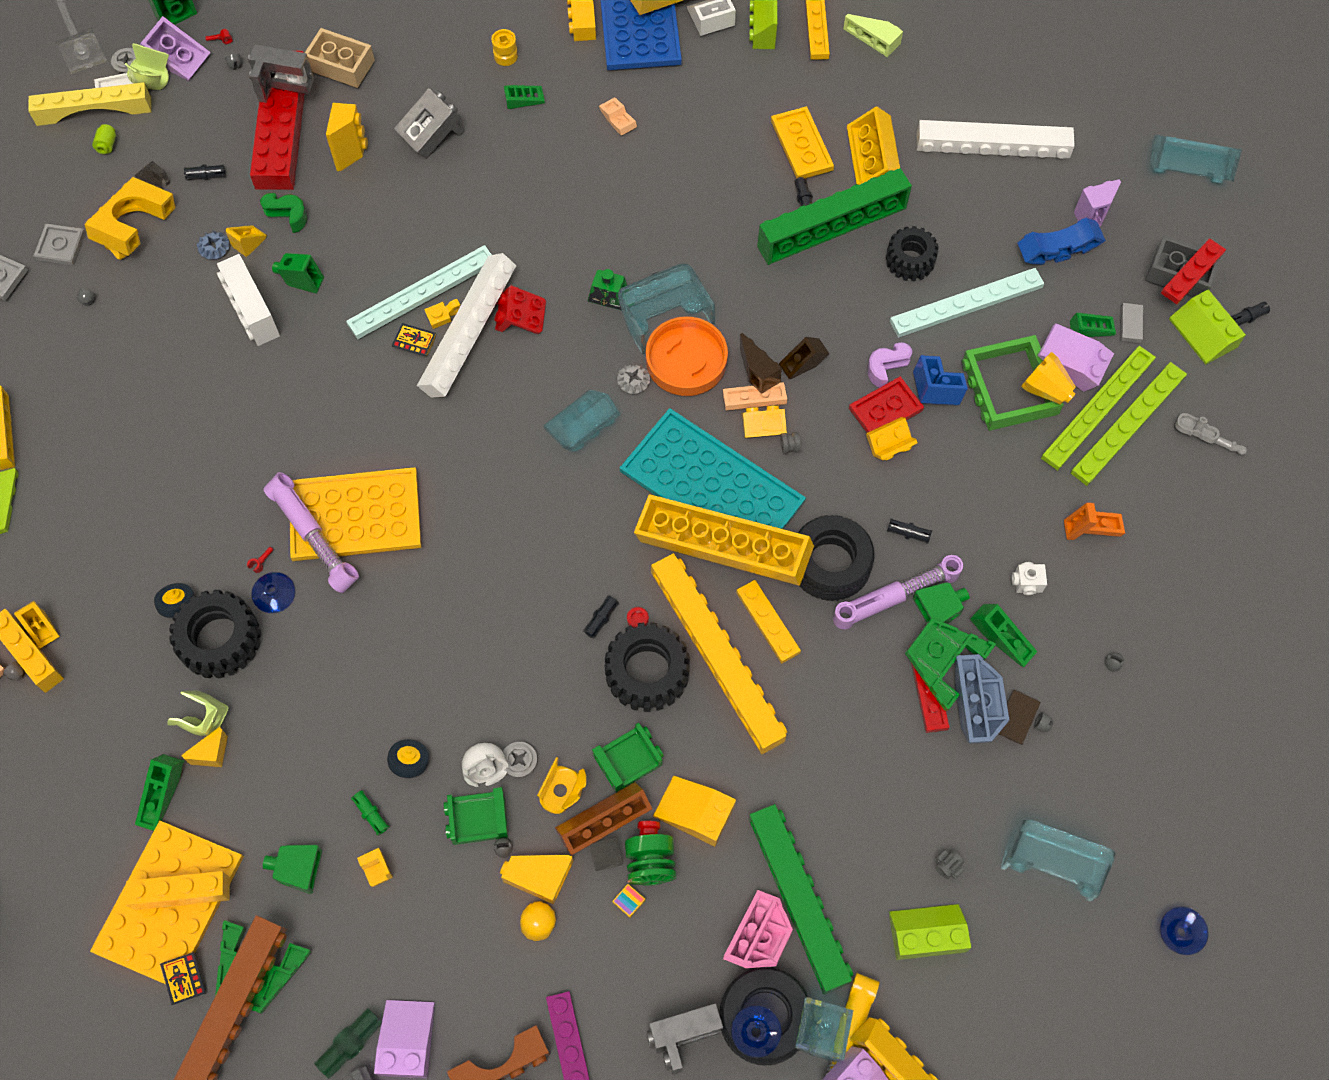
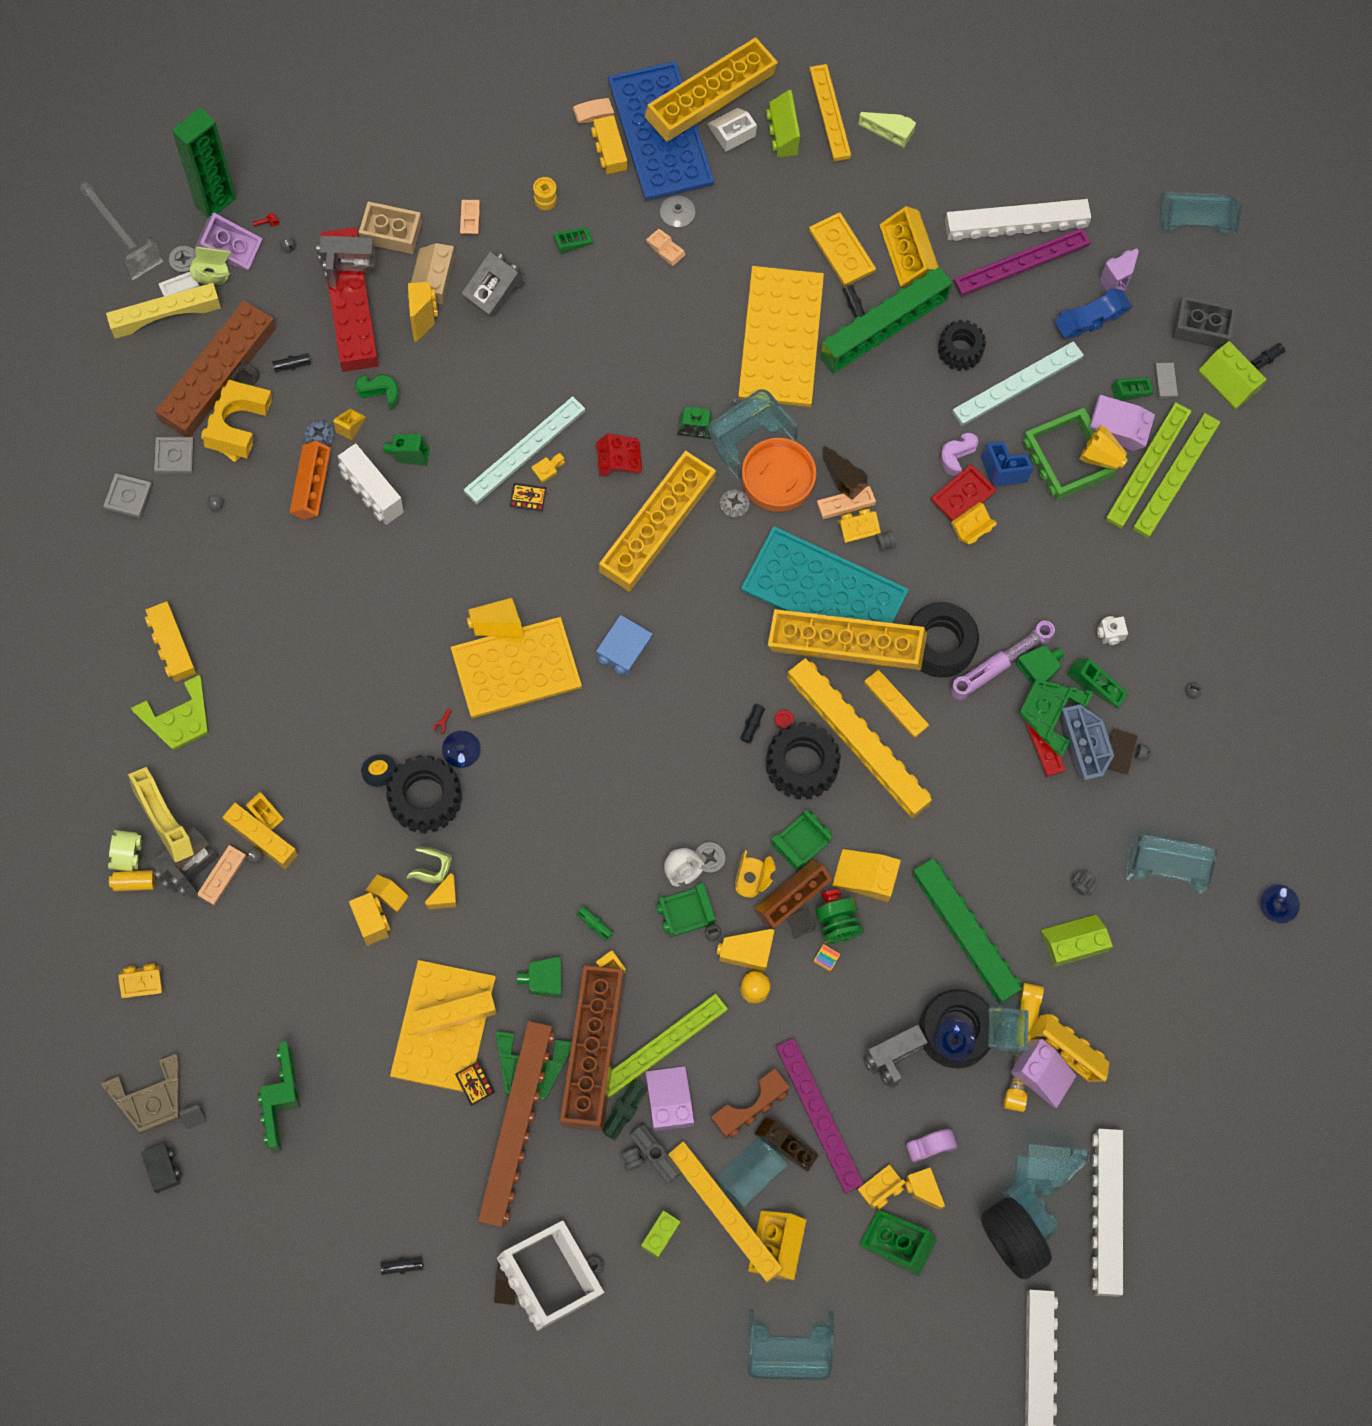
camera: 15 degrees left, 5 degrees up
(104, 139) = (187, 344): lime brick -> none
(114, 763) = (371, 923): none -> yellow brick
(148, 738) = (387, 892): none -> yellow slope
(155, 140) = (202, 383): none -> dark orange brick
(158, 790) = (410, 936): green slope -> none
(187, 287) = (310, 480): none -> orange brick
(281, 491) = (450, 658): lavender piece -> none
(326, 963) = (593, 1048): none -> dark orange brick
(343, 459) = (495, 619): none -> yellow slope
(376, 104) = (435, 266): none -> tan slope
(404, 976) = (665, 1043): none -> lime plate
(408, 758) = (616, 872): black wheel -> none
(424, 60) = (470, 217): none -> light nougat slope
(466, 326) = (575, 477): white brick -> none
(476, 508) = (623, 645): none -> medium blue panel
(543, 383) = (657, 521): none -> yellow brick
(582, 420) = (698, 548): clear light blue slope -> none
(638, 85) = (677, 218): none -> light grey dish
(721, 217) = (781, 334): none -> yellow plate
(760, 934) = (942, 964): bright pink wedge -> none
(804, 357) = (882, 459): dark brown slope -> none
(909, 530) = (1002, 604): black pin -> none
(992, 181) = (1021, 262): none -> magenta plate
(1090, 521) = (1155, 571): orange bracket -> none
(1193, 271) = (1213, 326): red plate -> none
(1197, 426) = (1231, 469): light grey piece -> none

